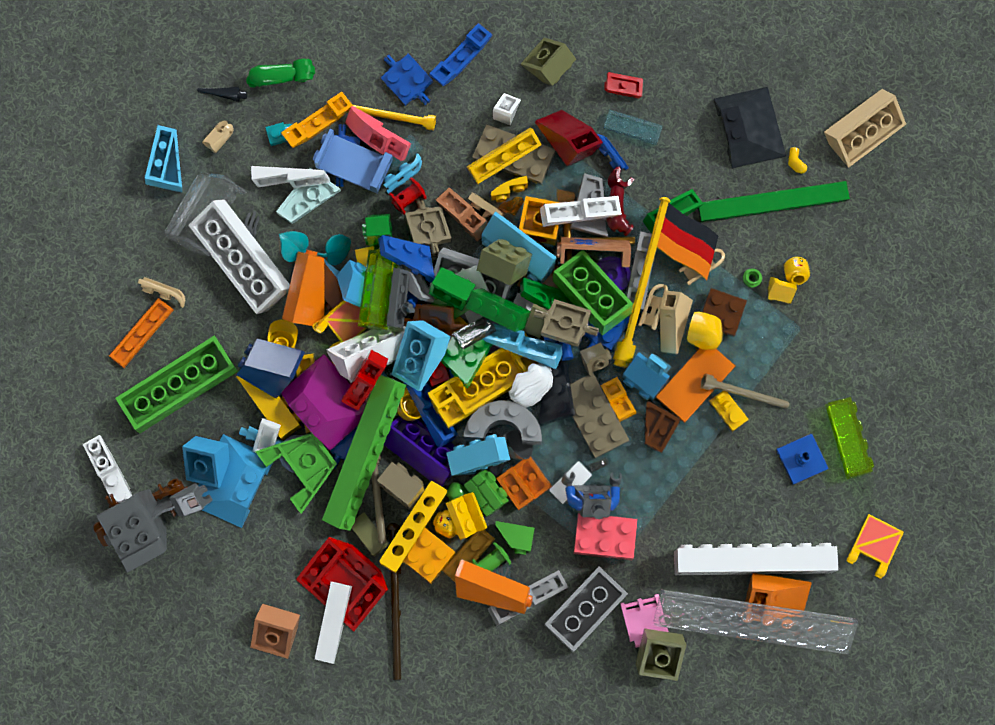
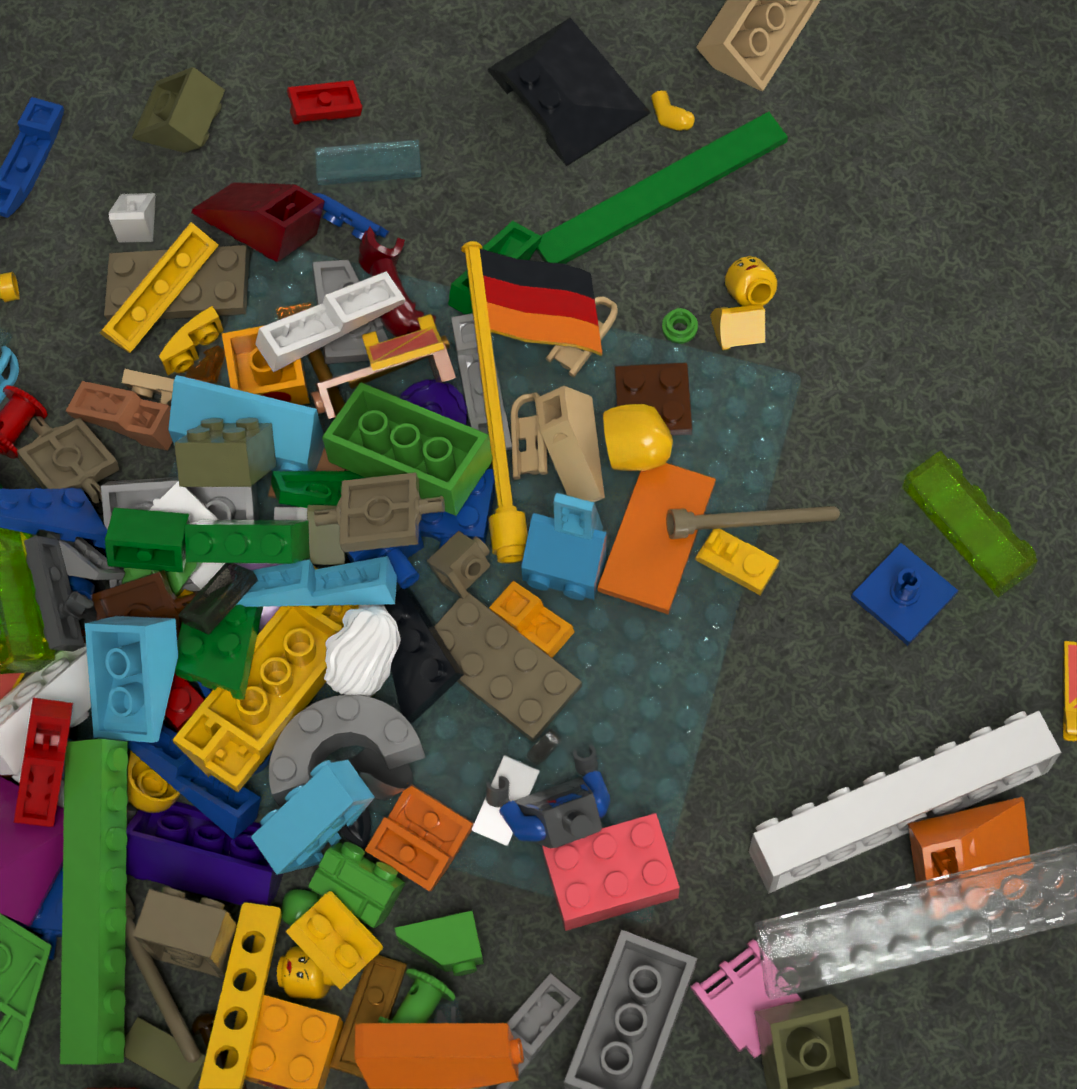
camera: 20 degrees left, 10 degrees down
(610, 241) = (403, 347): none -> flag
(658, 427) = (625, 638): reddish brown wing -> none

